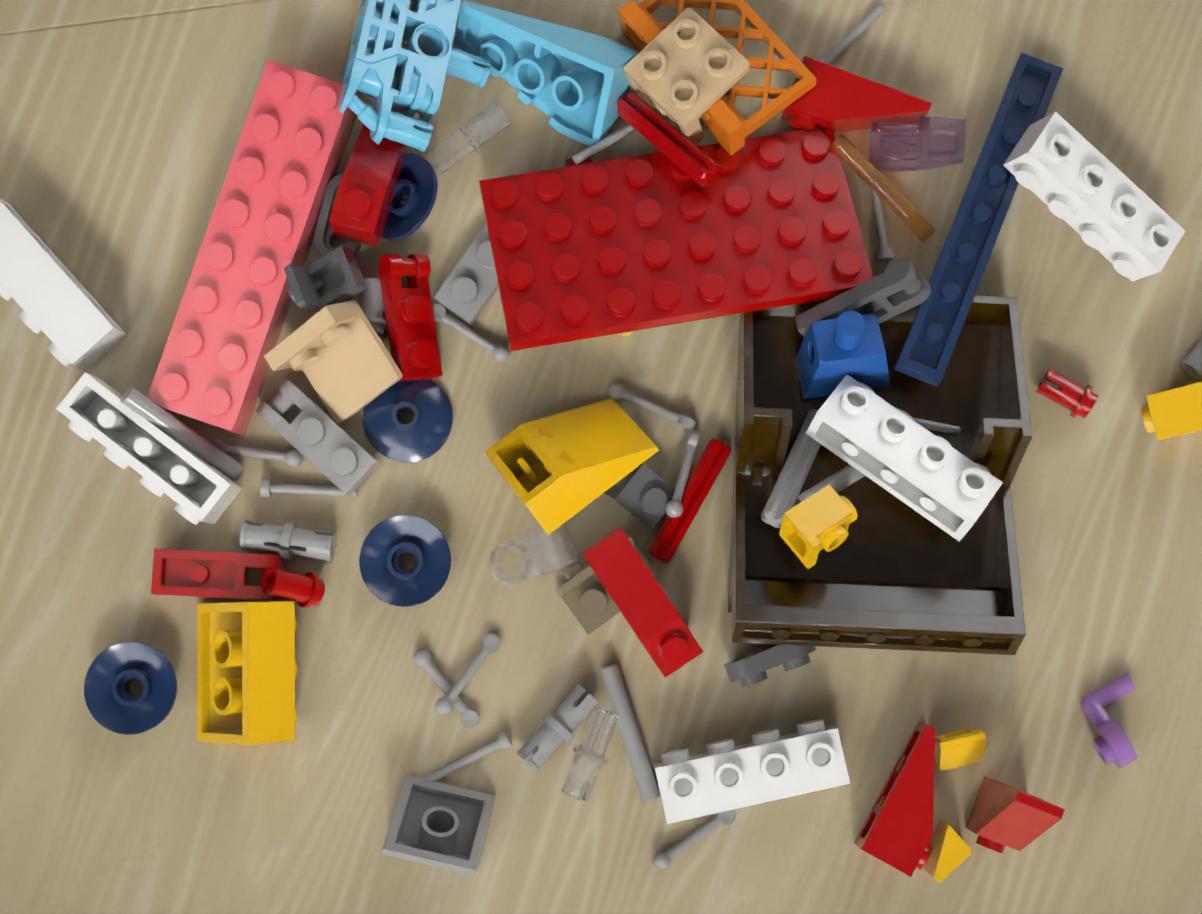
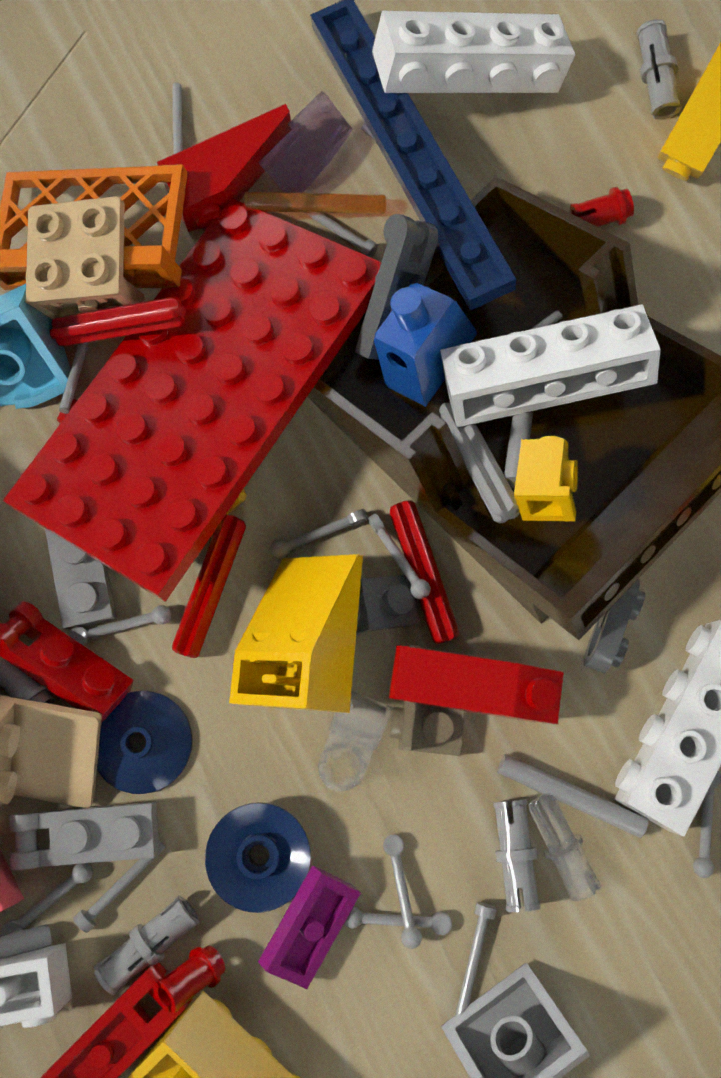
camera: 50 degrees left, 5 degrees down
(392, 634) = (309, 927): none -> magenta plate
(547, 367) = (209, 587): none -> red axle

